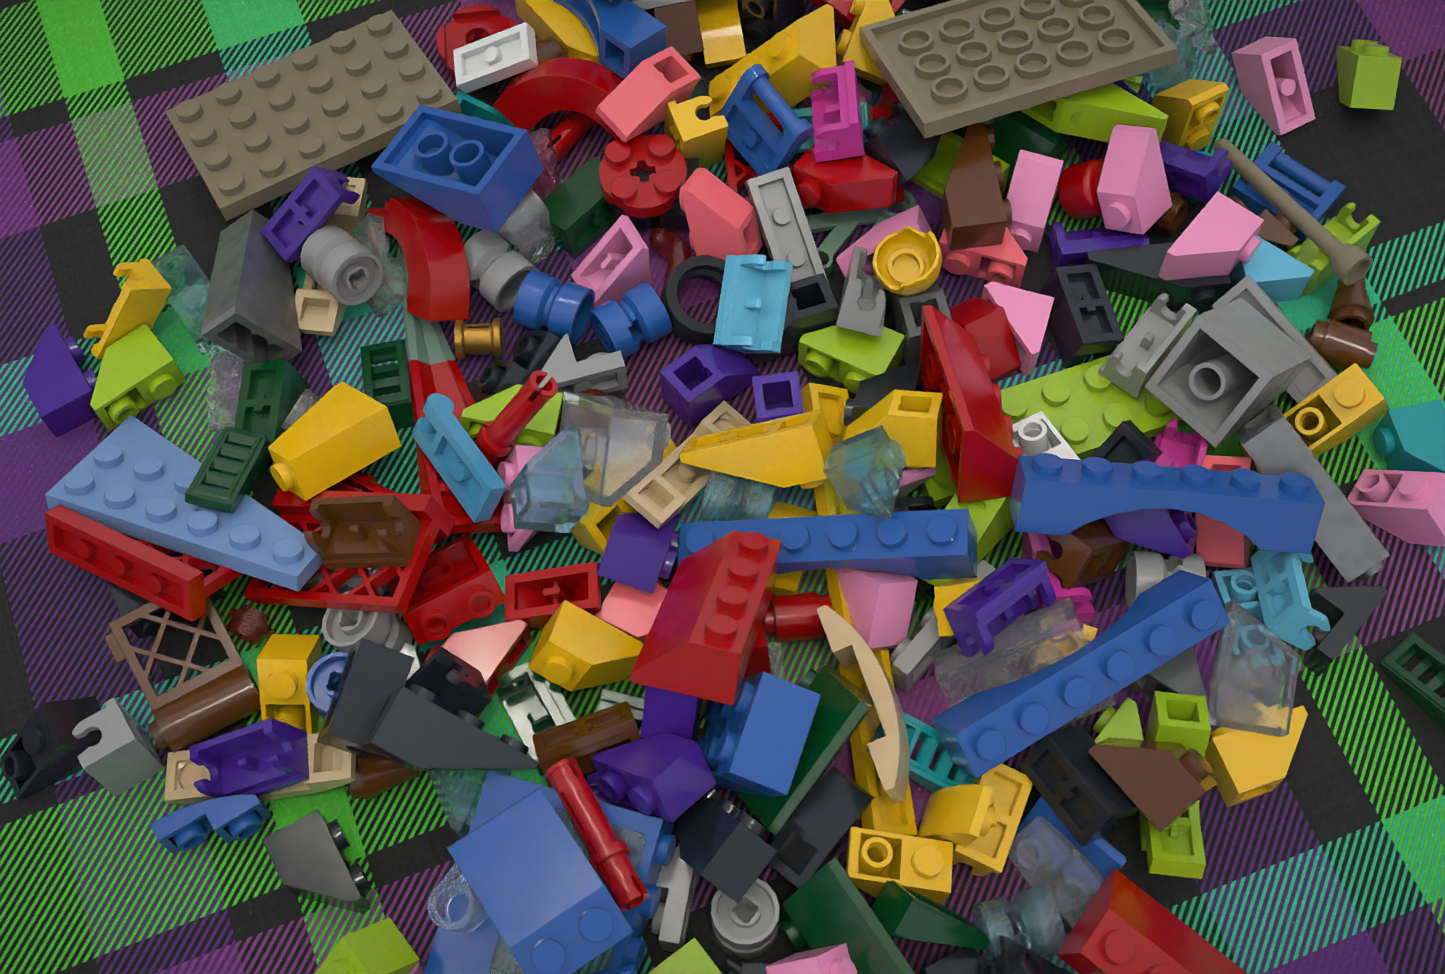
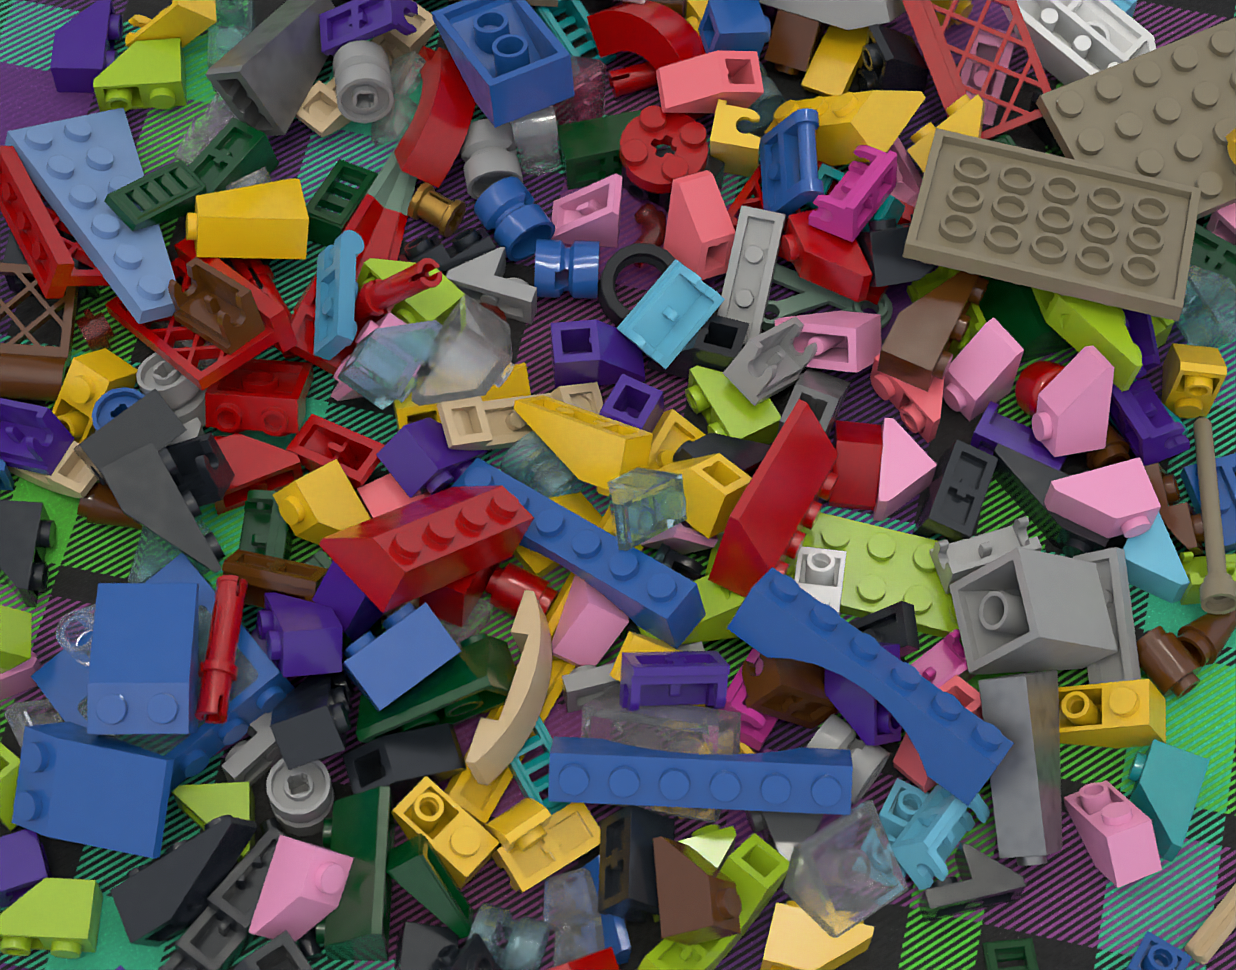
camera: 30 degrees right, 0 degrees up
(907, 261) = (823, 356): yellow hair -> none

